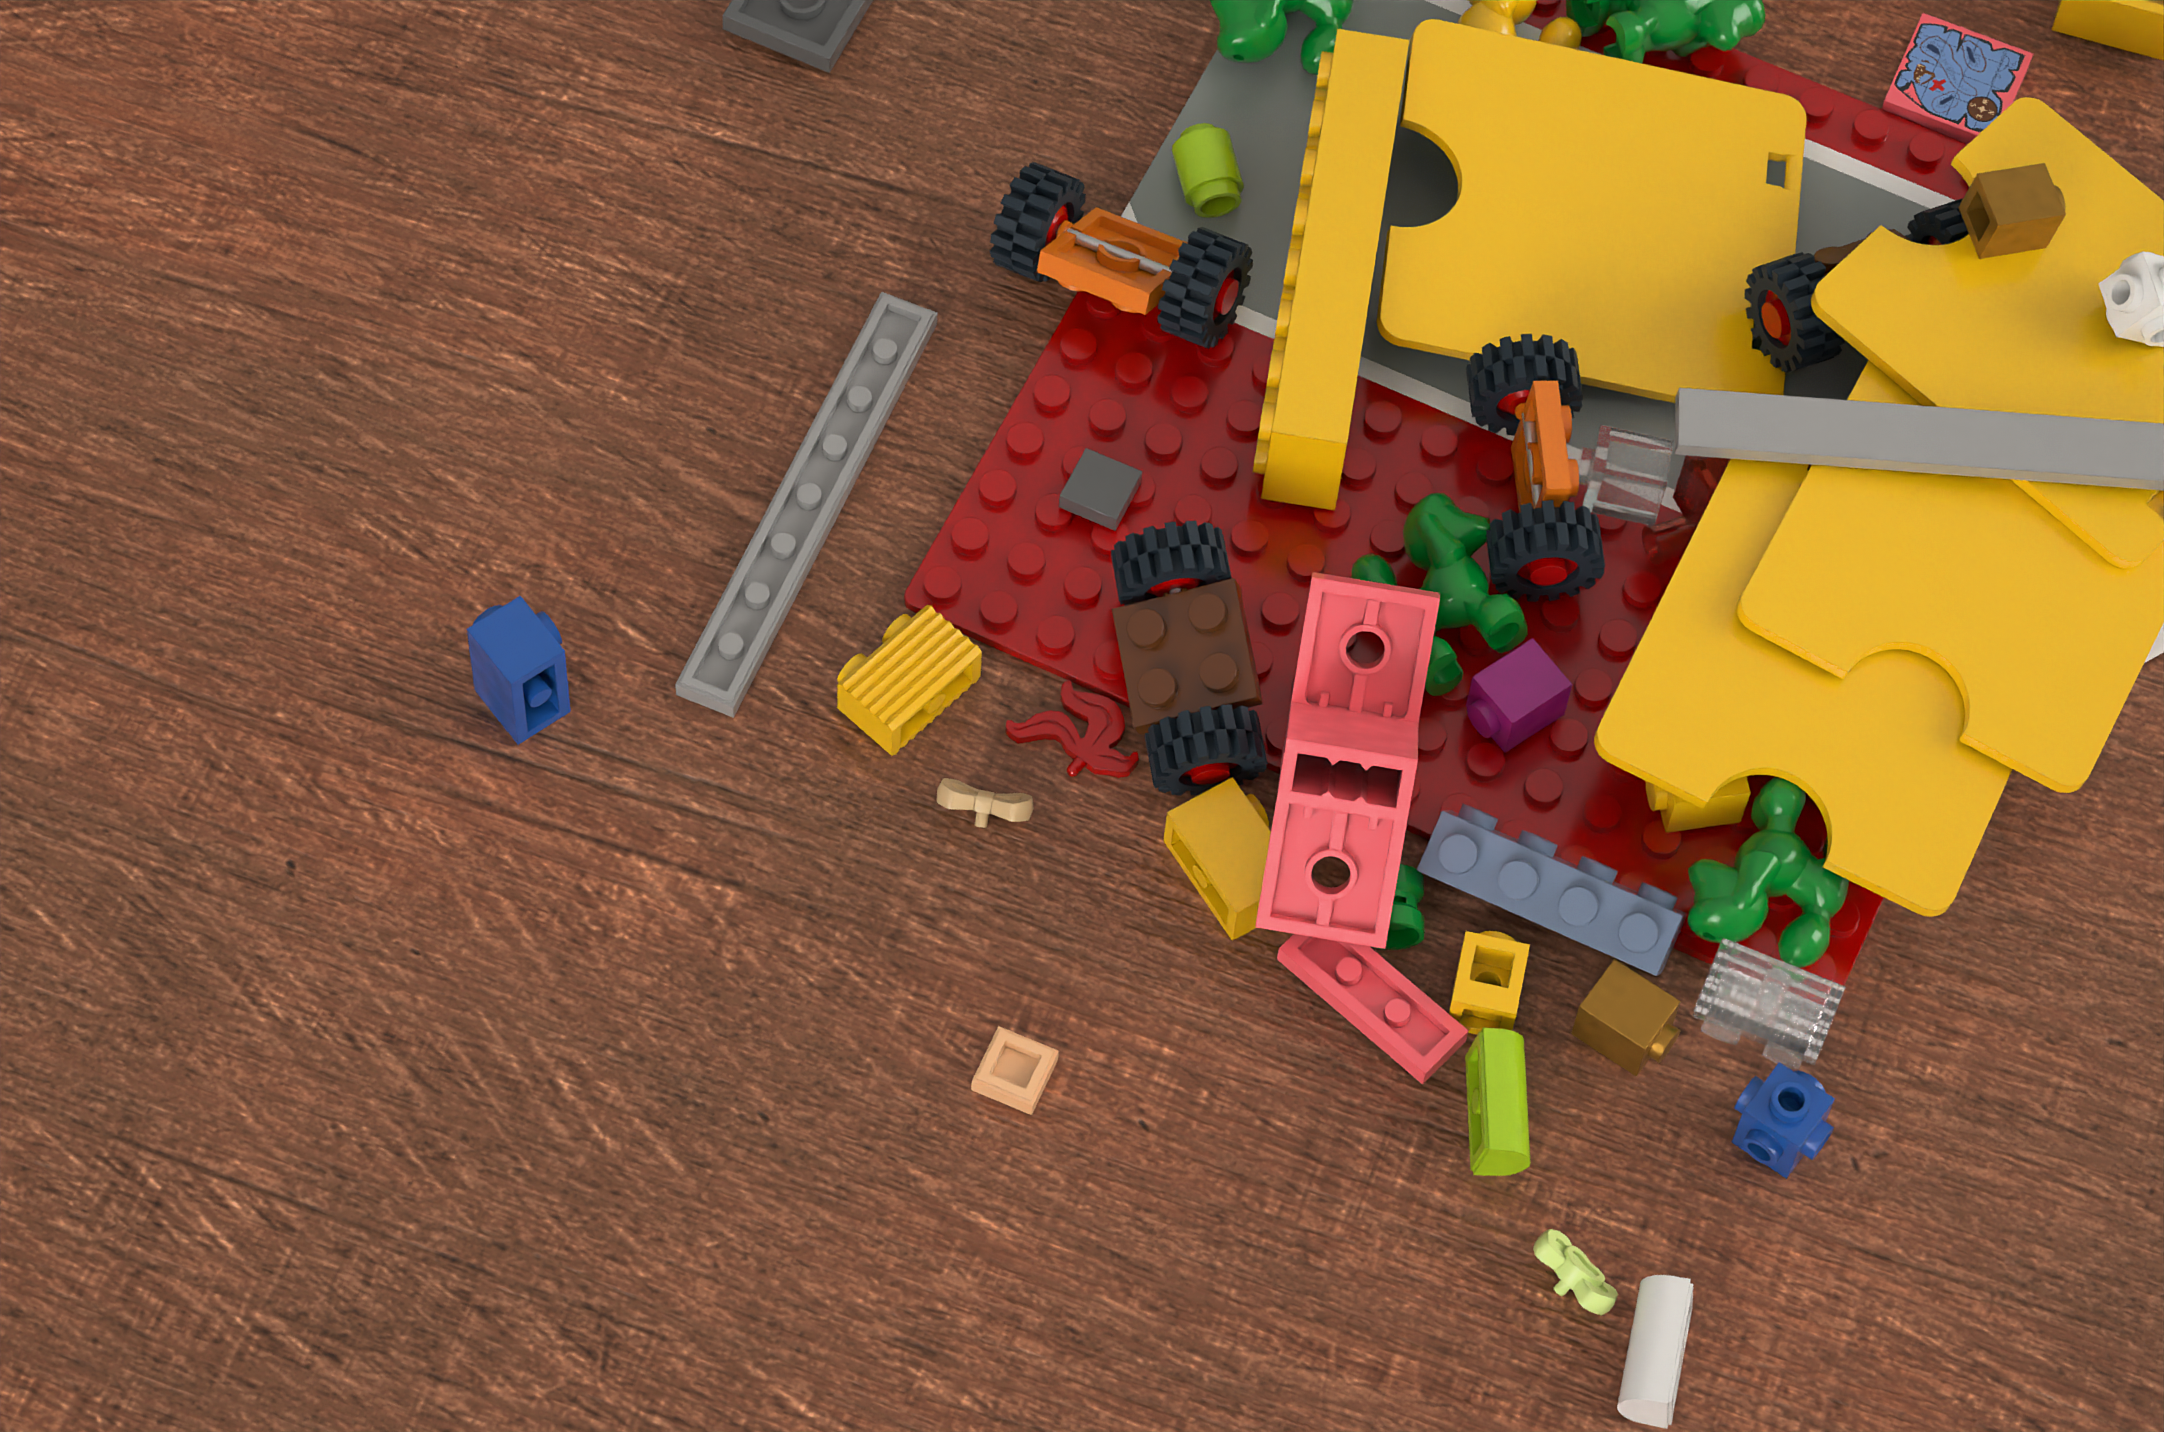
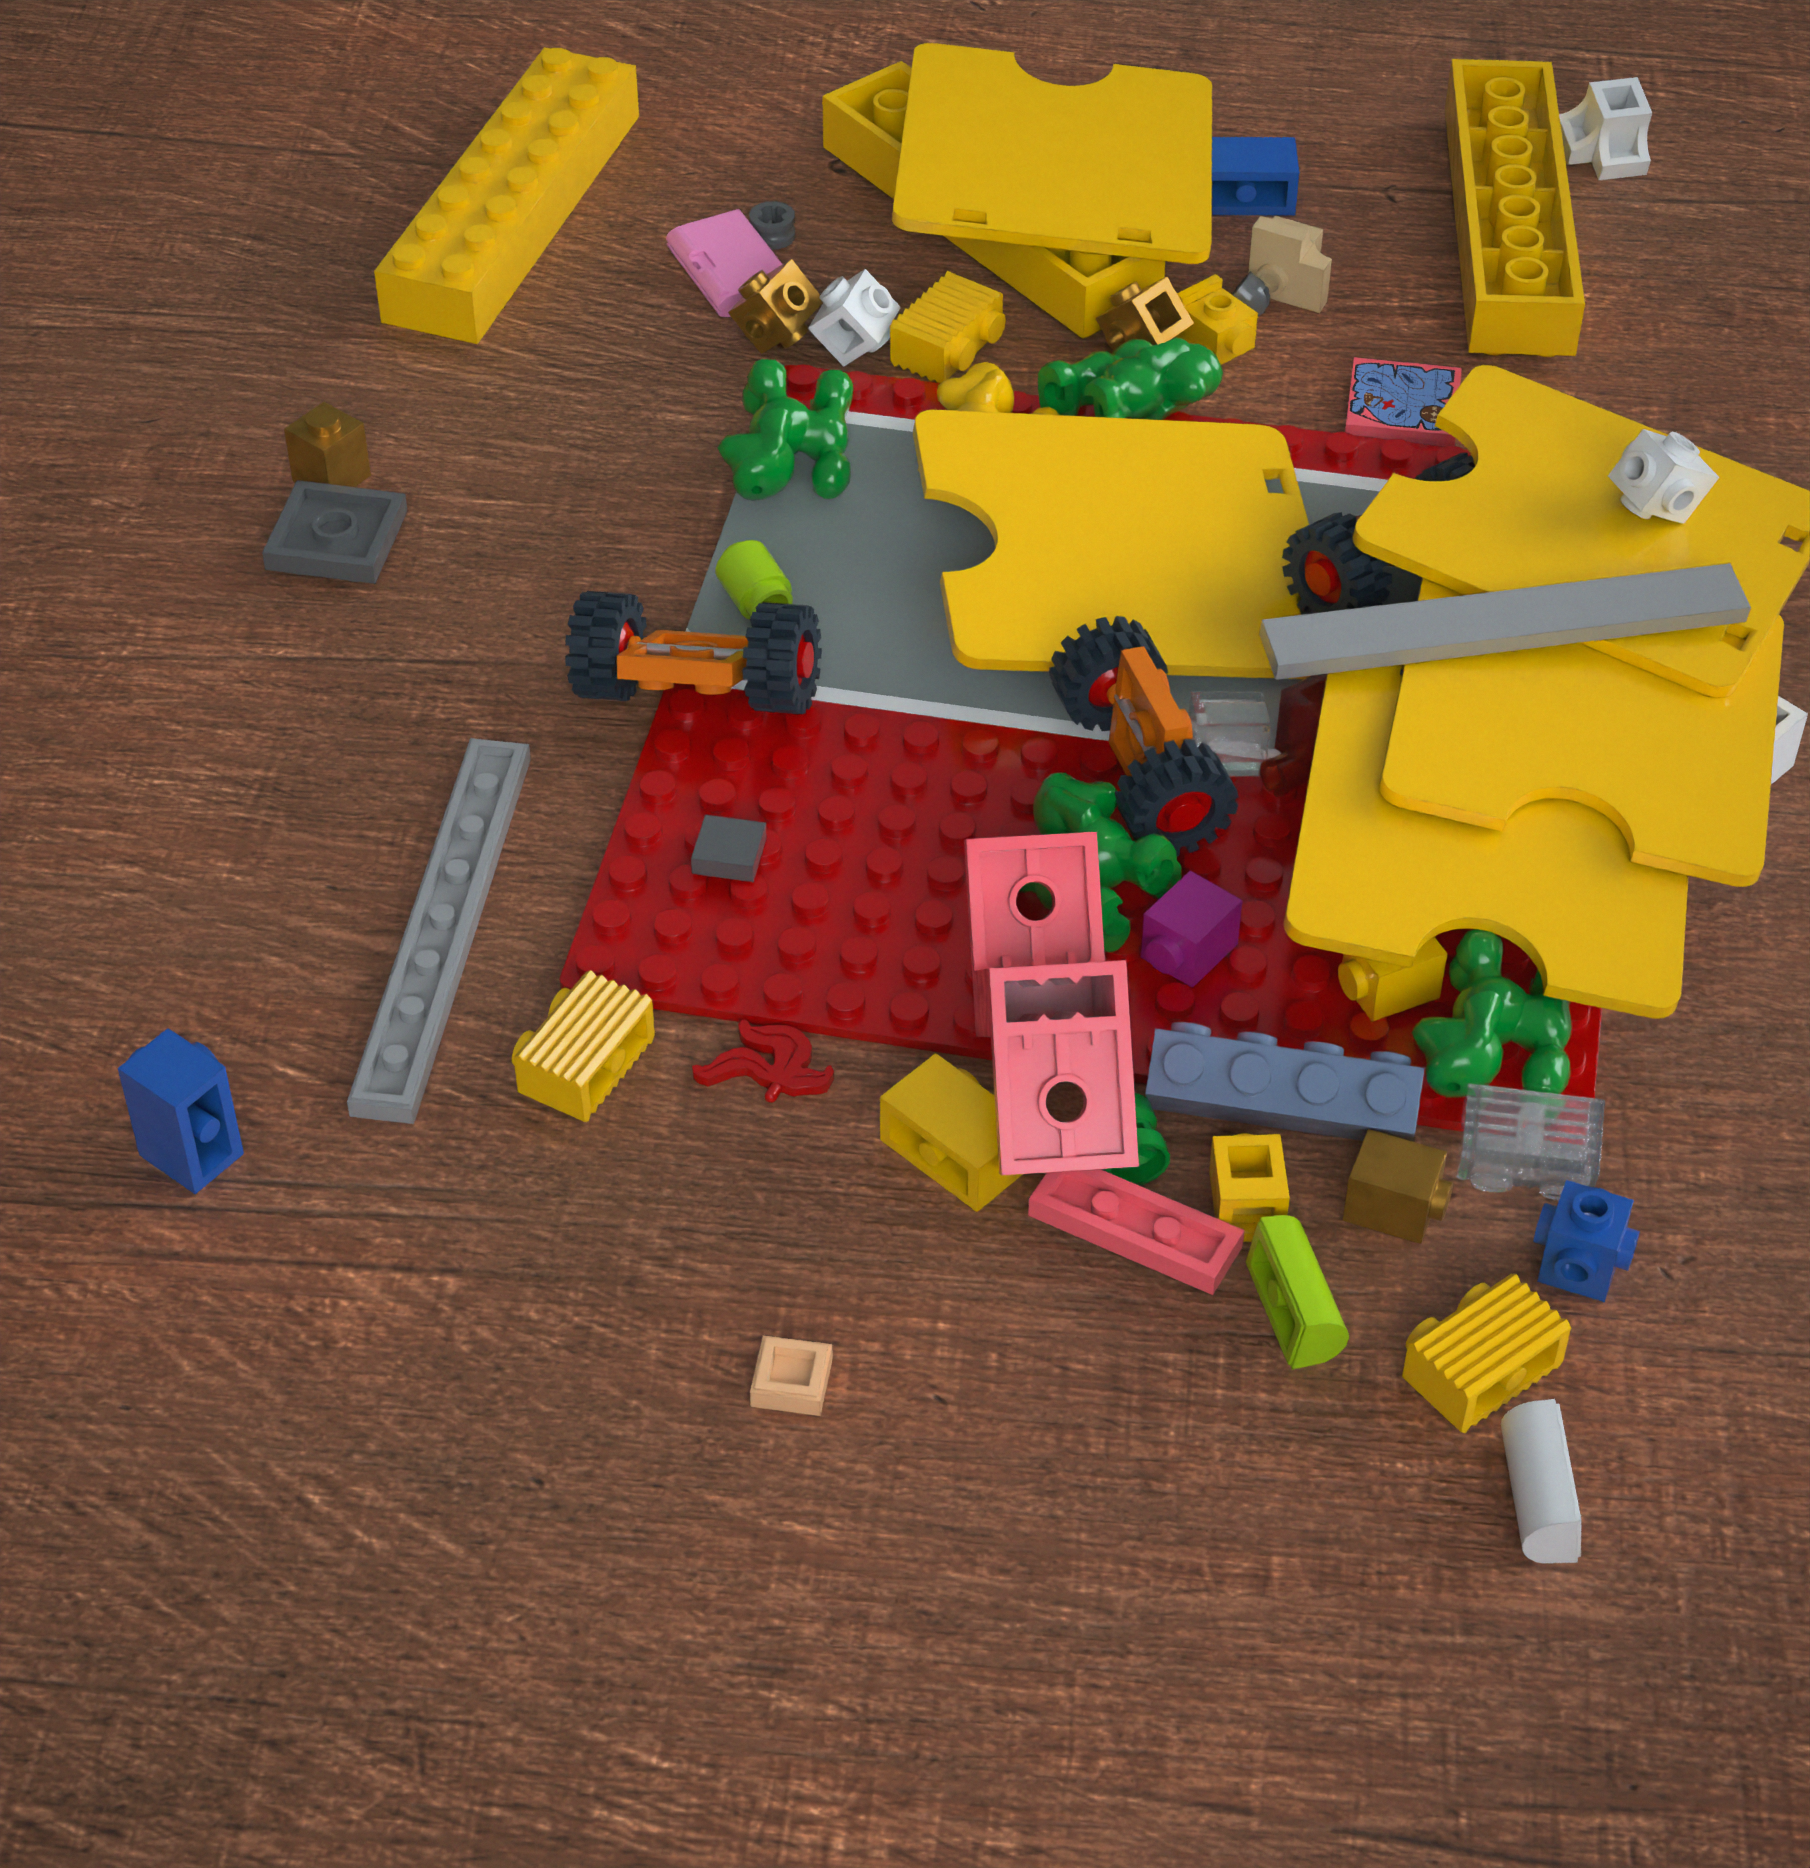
camera: 10 degrees left, 15 degrees down
(960, 796) = (690, 1138): tan piece -> none
(1187, 657) = (859, 958): plate -> none
(1330, 270) = (898, 628): yellow brick -> none
(1575, 1272) = (1430, 1430): yellowish green piece -> none
(1650, 1207) = (1485, 1351): none -> yellow brick
(2012, 210) = (1508, 435): pearl gold brick -> none

